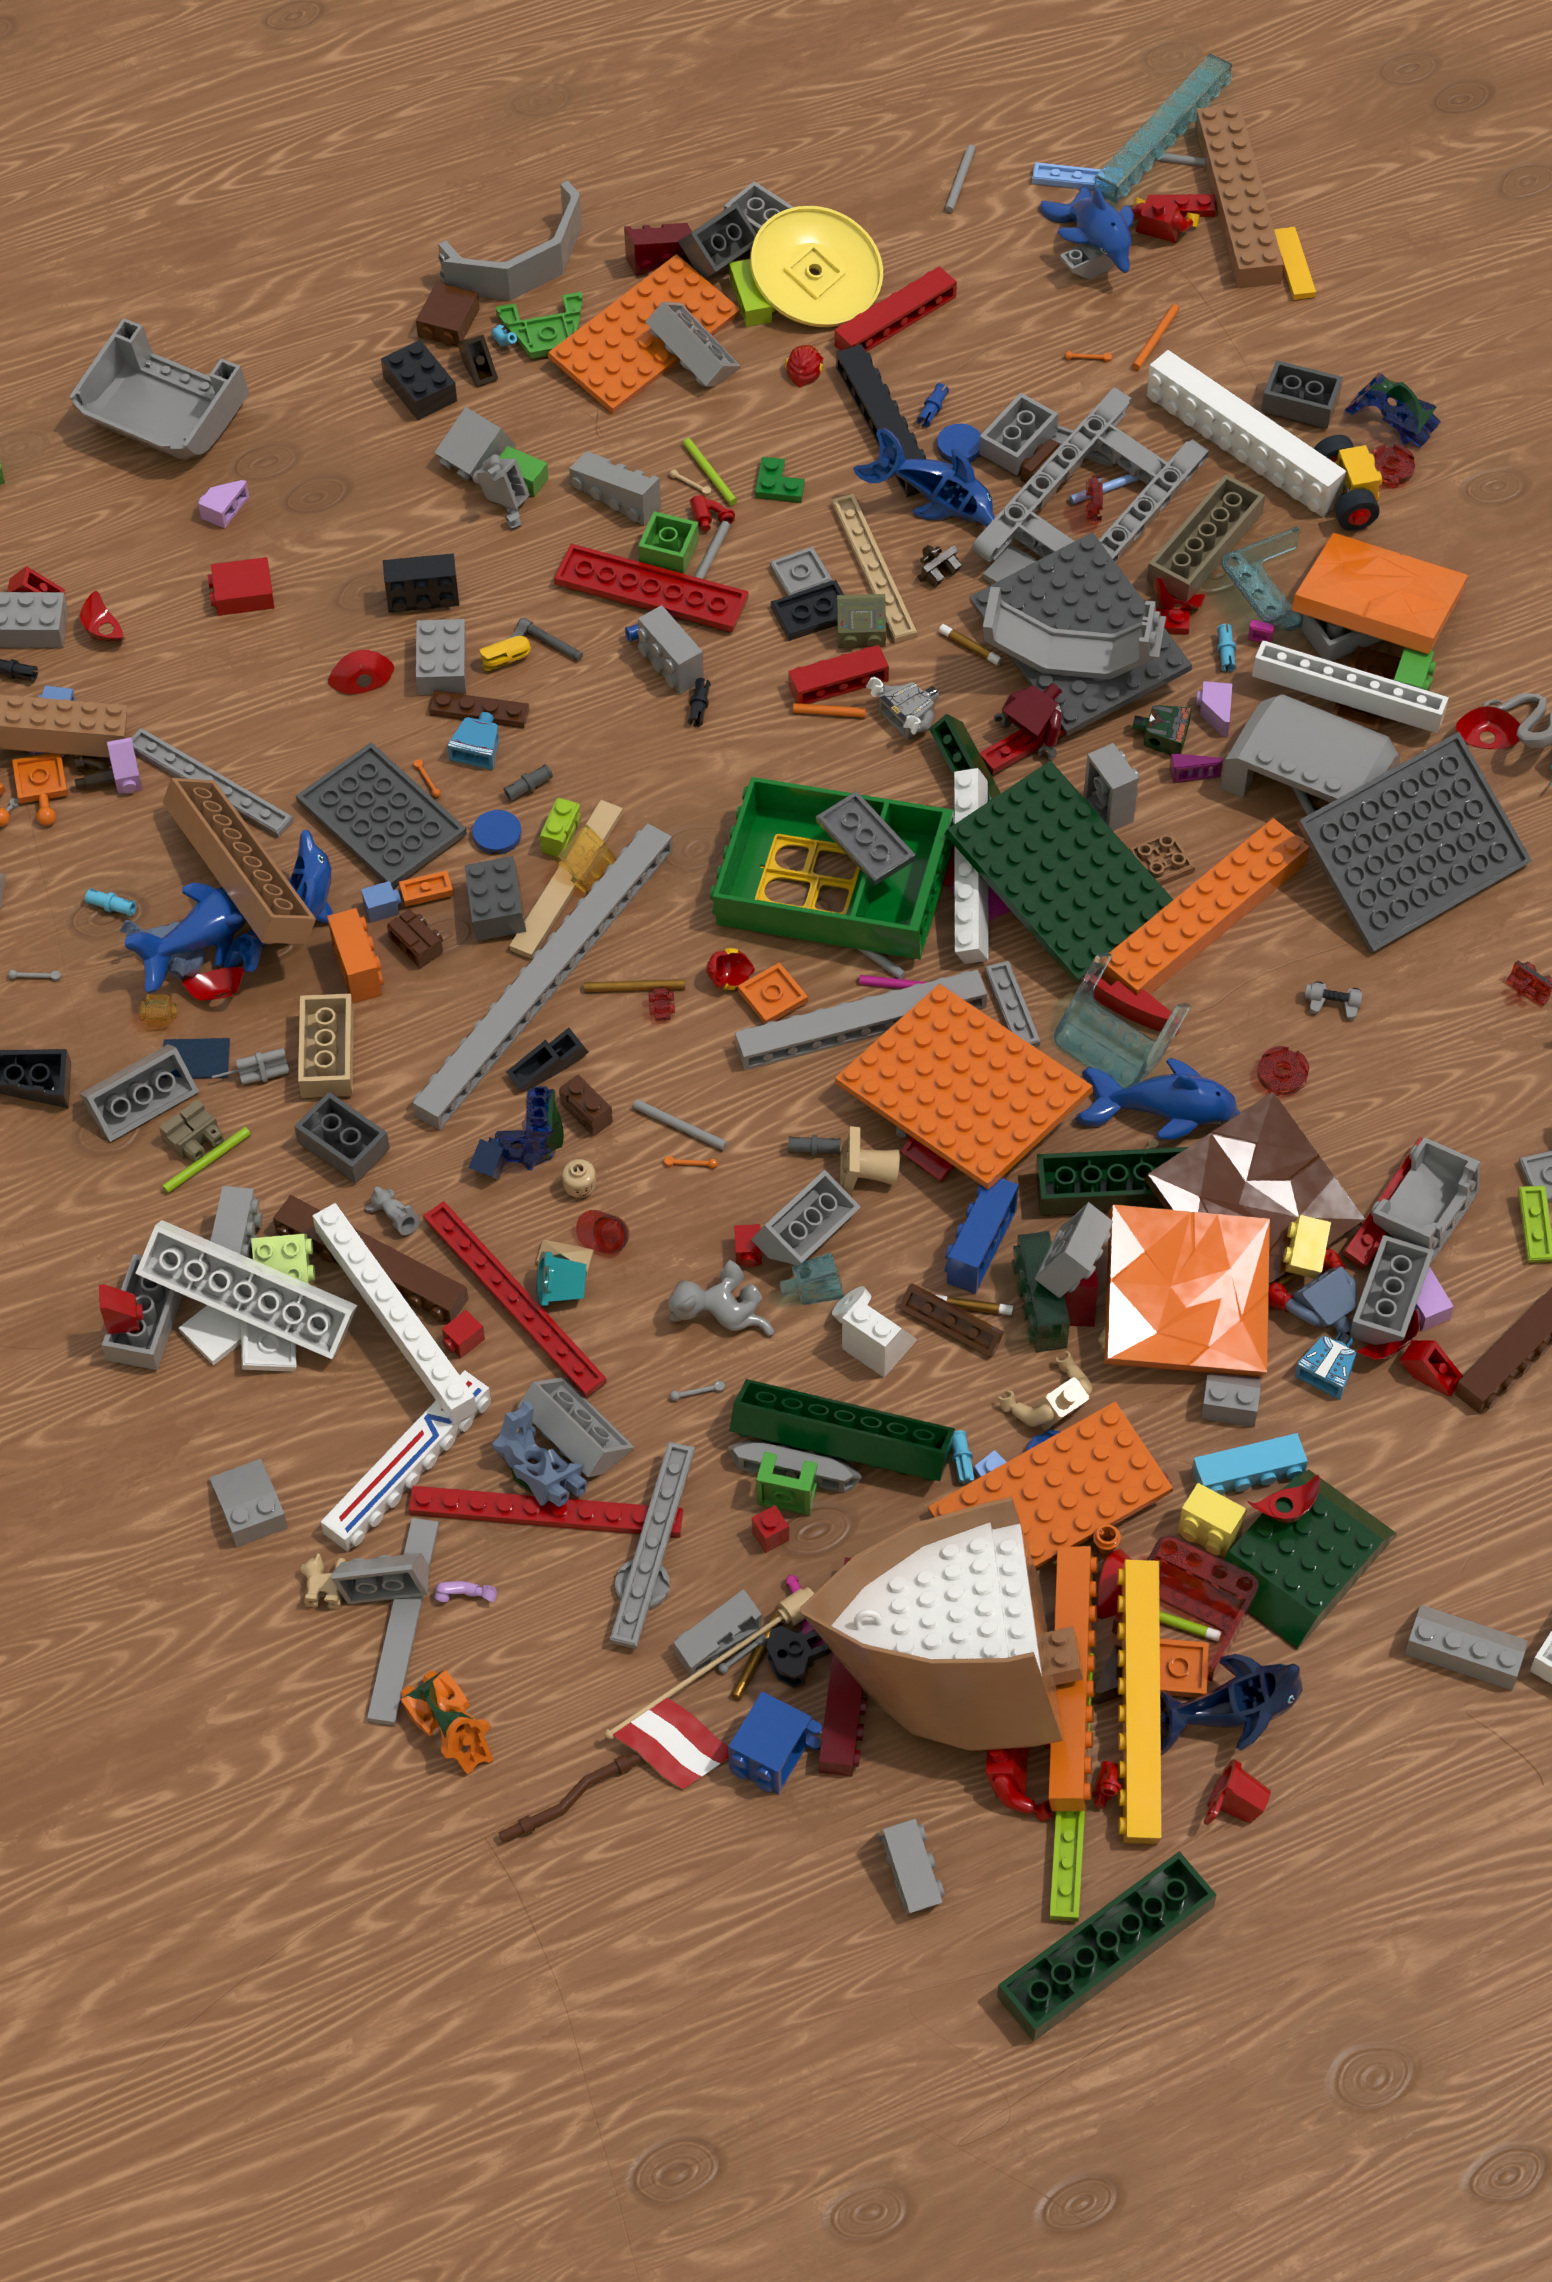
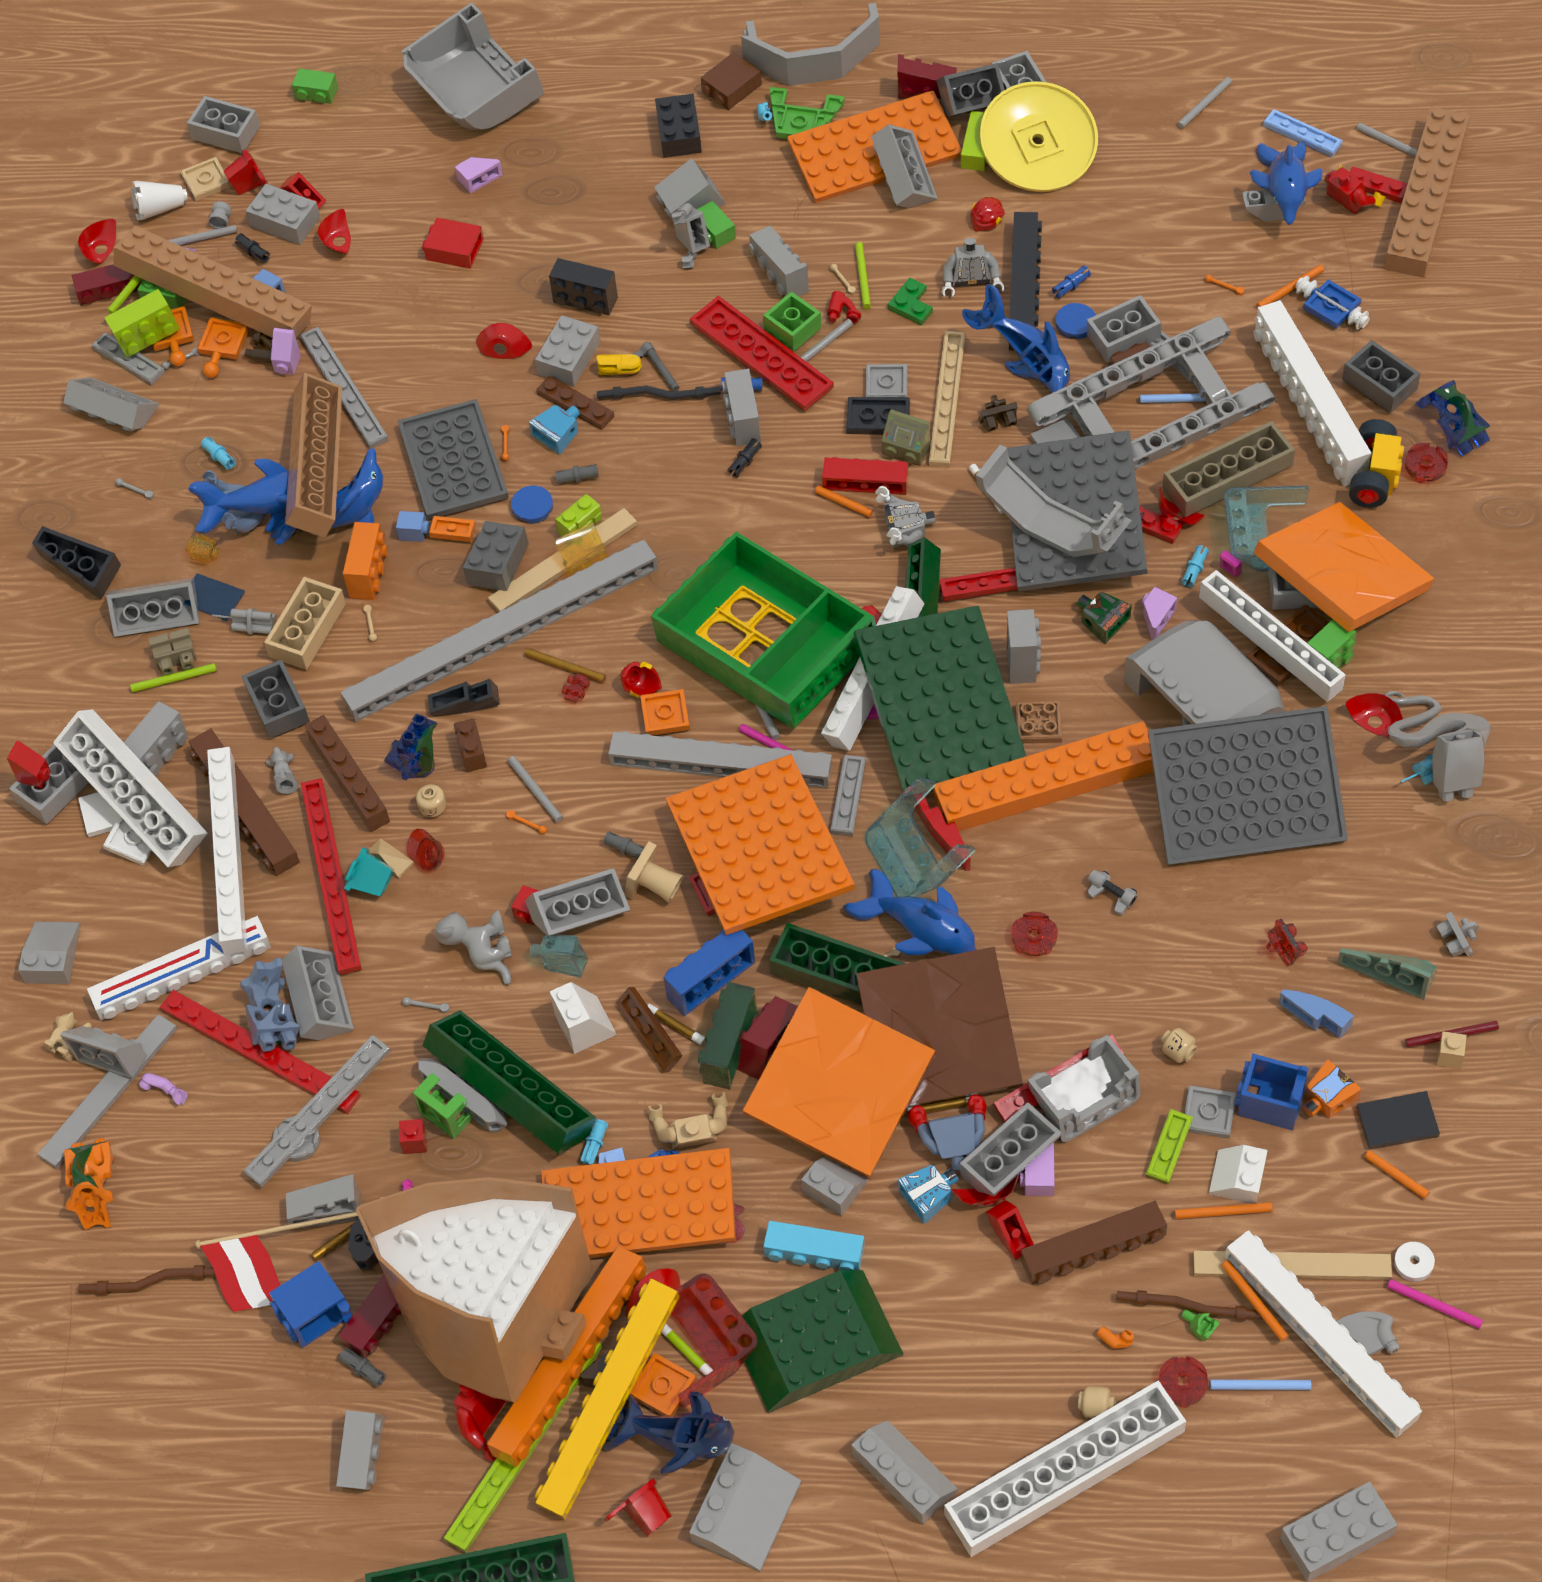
camera: 30 degrees right, 0 degrees up
(210, 983) = (253, 543): red piece -> none
(286, 1254) = (178, 775): yellowish green brick -> none
(381, 1008) = (367, 610): none -> tan hinge
(415, 938) = (421, 565): reddish brown brick -> none
(462, 1334) = (276, 887): red brick -> none
(468, 1185) = (347, 773): none -> reddish brown brick
(477, 359) = (732, 125): dark brown slope -> none
(489, 1158) = (373, 758): dark blue brick -> none
(521, 682) = (699, 392): none -> black bar
(724, 1667) = (318, 1230): light grey hinge -> none
(823, 423) = (970, 266): none -> light grey torso
(849, 1300) = (583, 981): white piece -> none
(857, 1784) = (362, 1367): none -> dark grey pin
(866, 838) = (791, 613): flat silver tile -> none
(897, 311) = (1086, 195): red brick -> none
(1035, 715) = (997, 565): dark red torso -> none
(1074, 1250) = (759, 1012): light grey brick -> none
(1095, 491) = (1155, 403): clear red plate -> none
(1106, 1539) = (661, 1256): orange cone -> none
(1106, 1784) = (548, 1453): red plant -> none
(1163, 128) = (1394, 114): clear light blue brick -> none
(1194, 767) = (1106, 655): magenta slope -> none
(1208, 338) = (1332, 303): none -> blue plate
(1211, 1520) = (751, 1276): light yellow brick -> none
(1295, 264) = (1444, 264): yellow tile -> none
(1301, 1497) = (798, 1288): red piece -> none
(1307, 1246) = (957, 1086): light yellow brick -> none
(1334, 1751) = (744, 1508): none -> light grey slope
(1489, 1122) = (1179, 1045): none -> tan head

